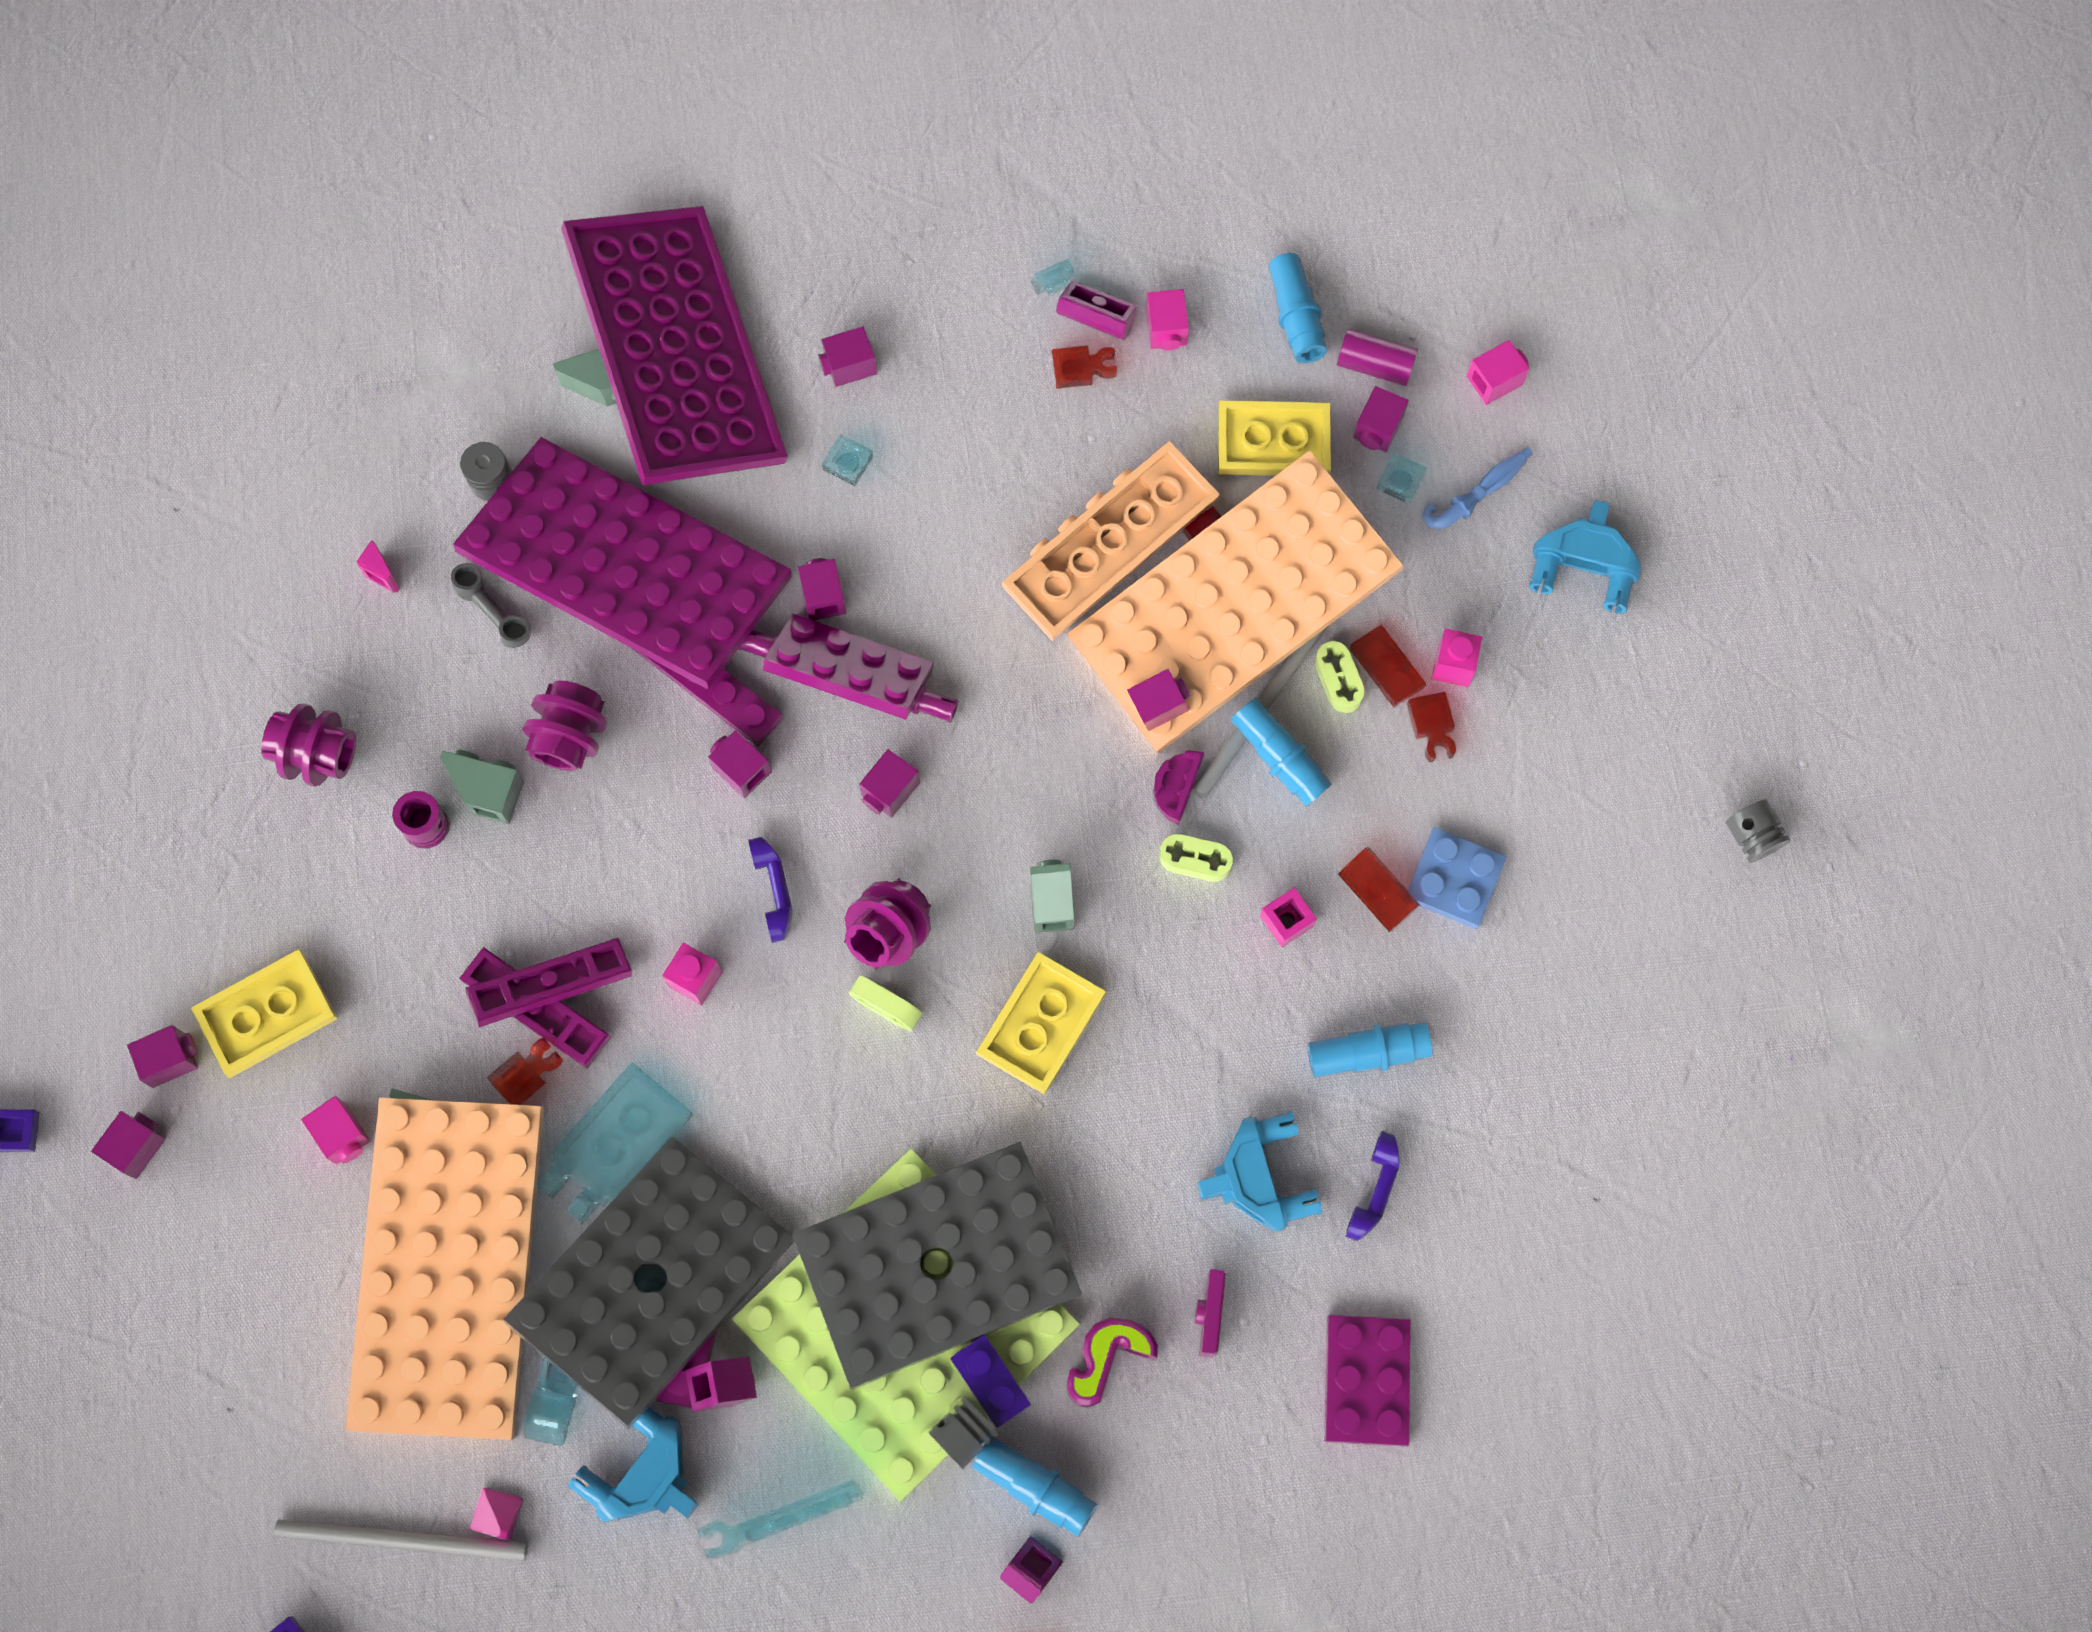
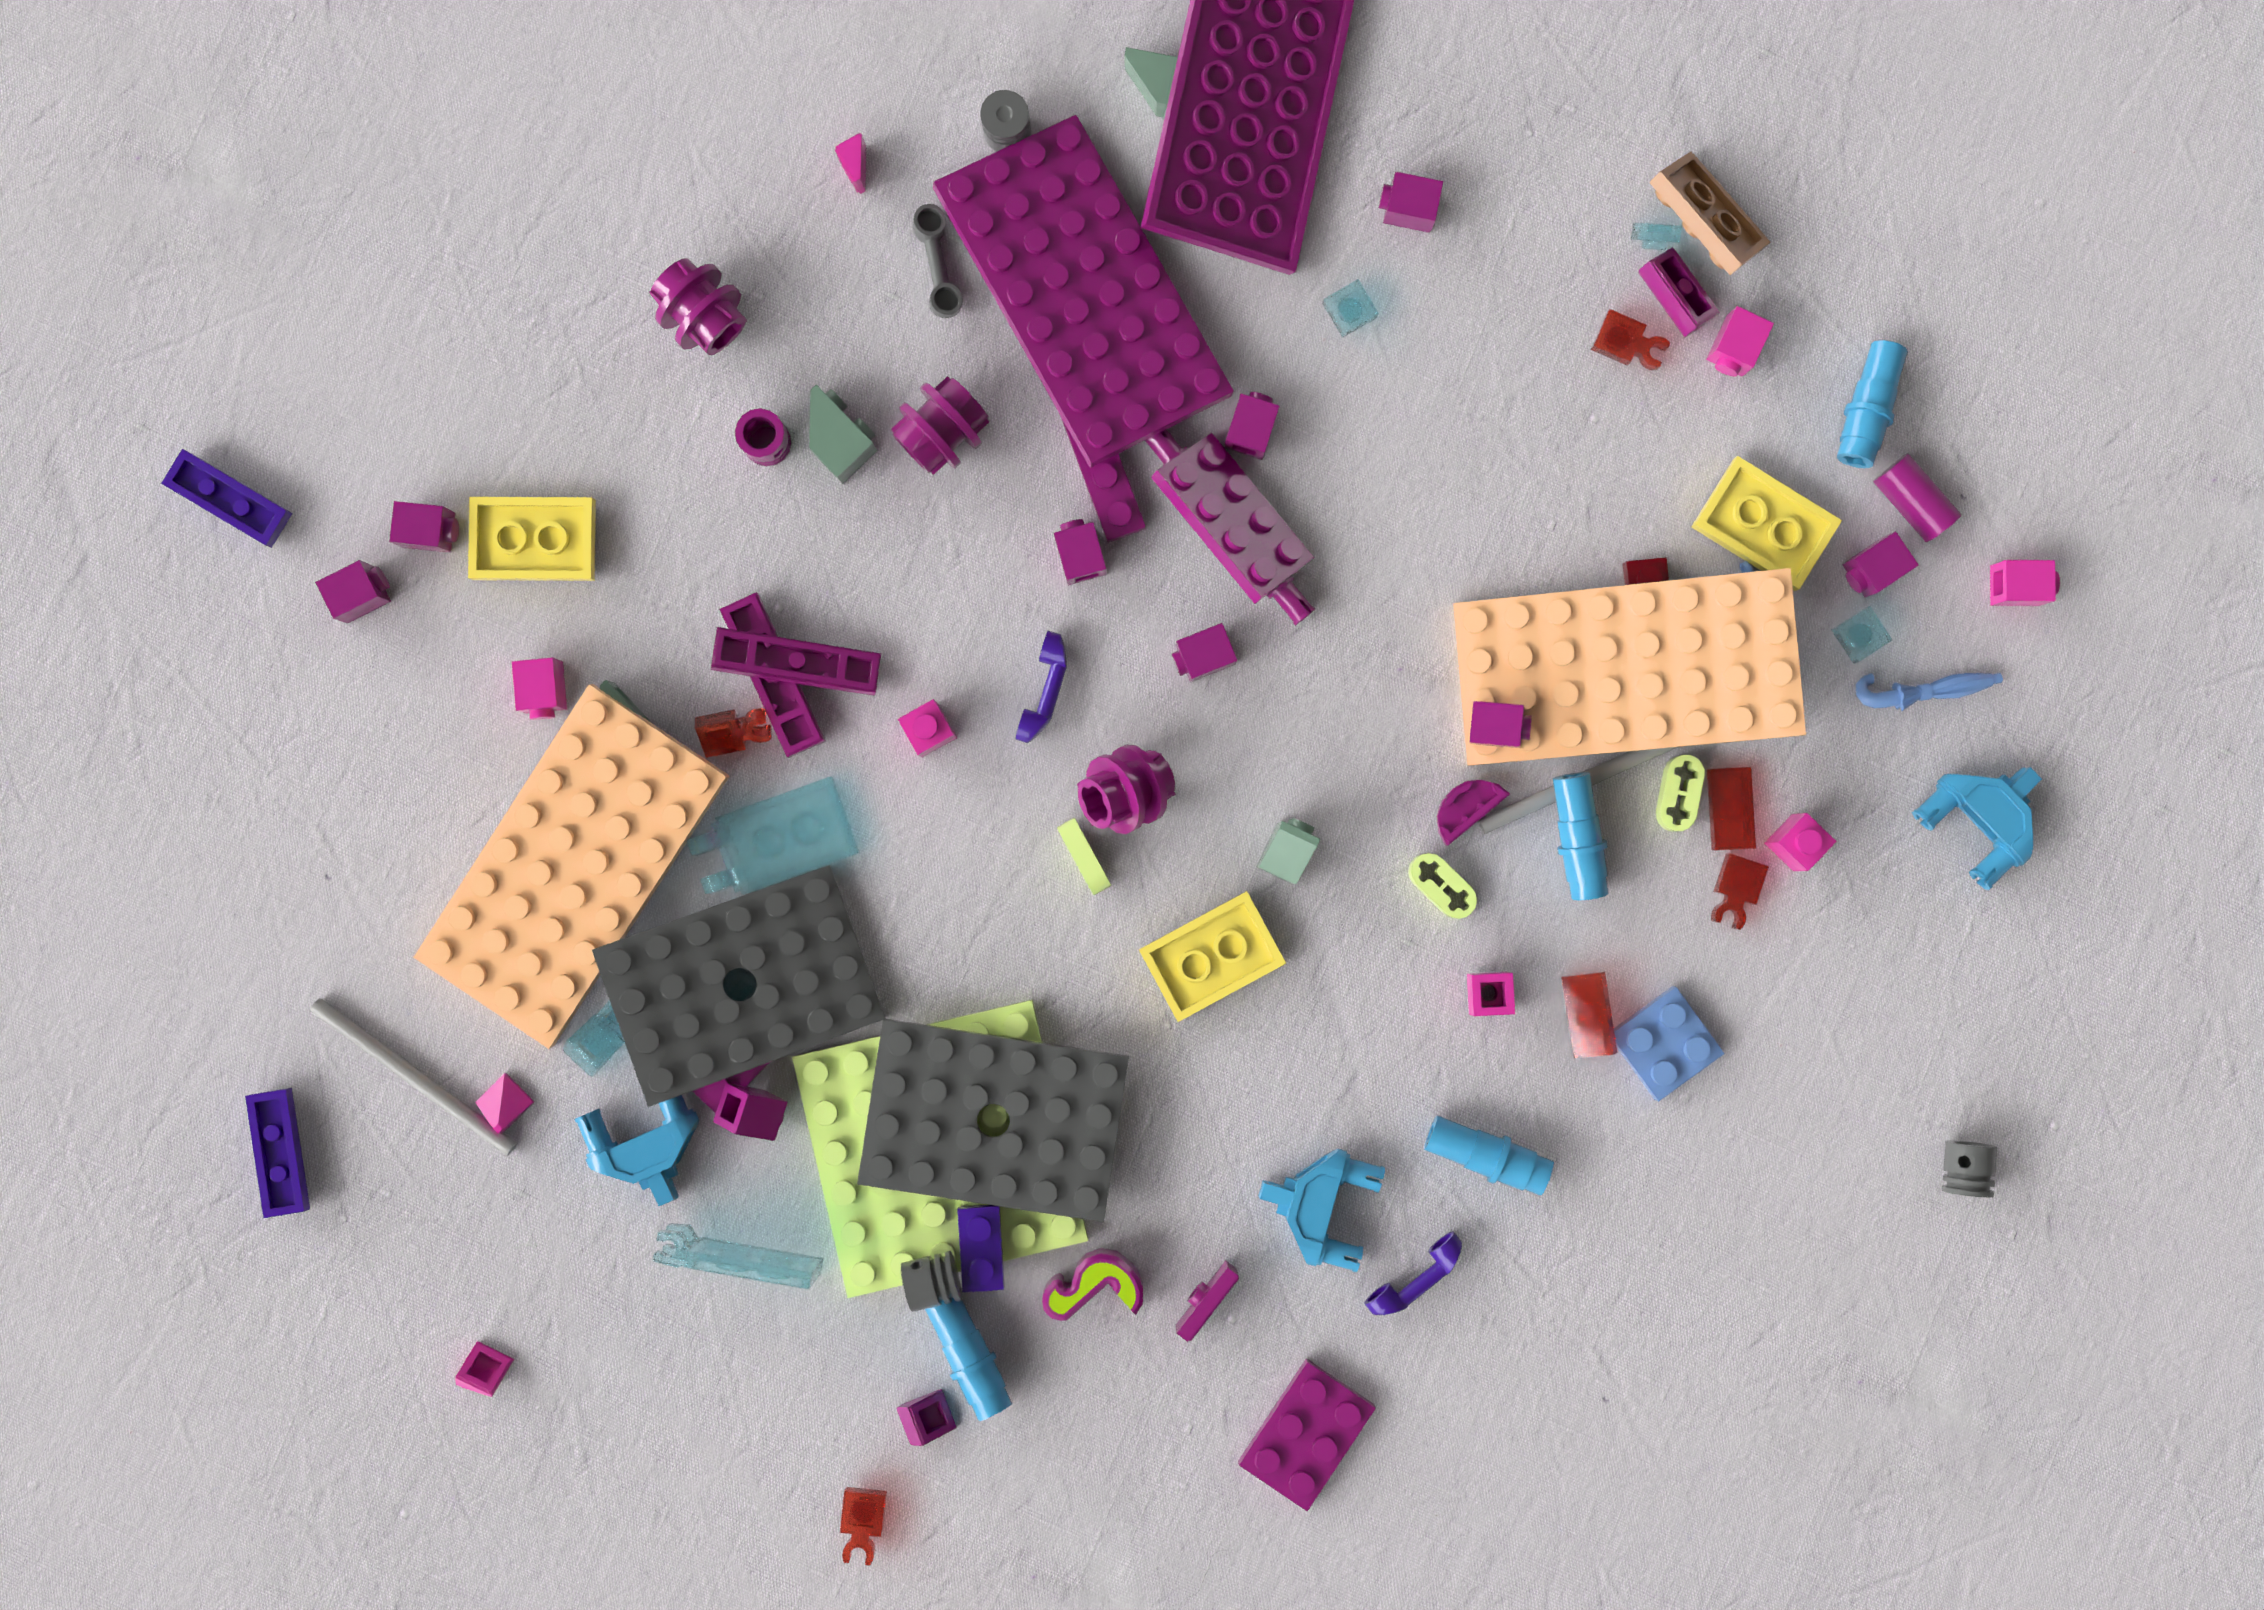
camera: 30 degrees right, 15 degrees up
(1083, 240) = (1709, 213): none -> medium nougat plate
(1109, 539) = (1549, 536): light nougat plate -> none

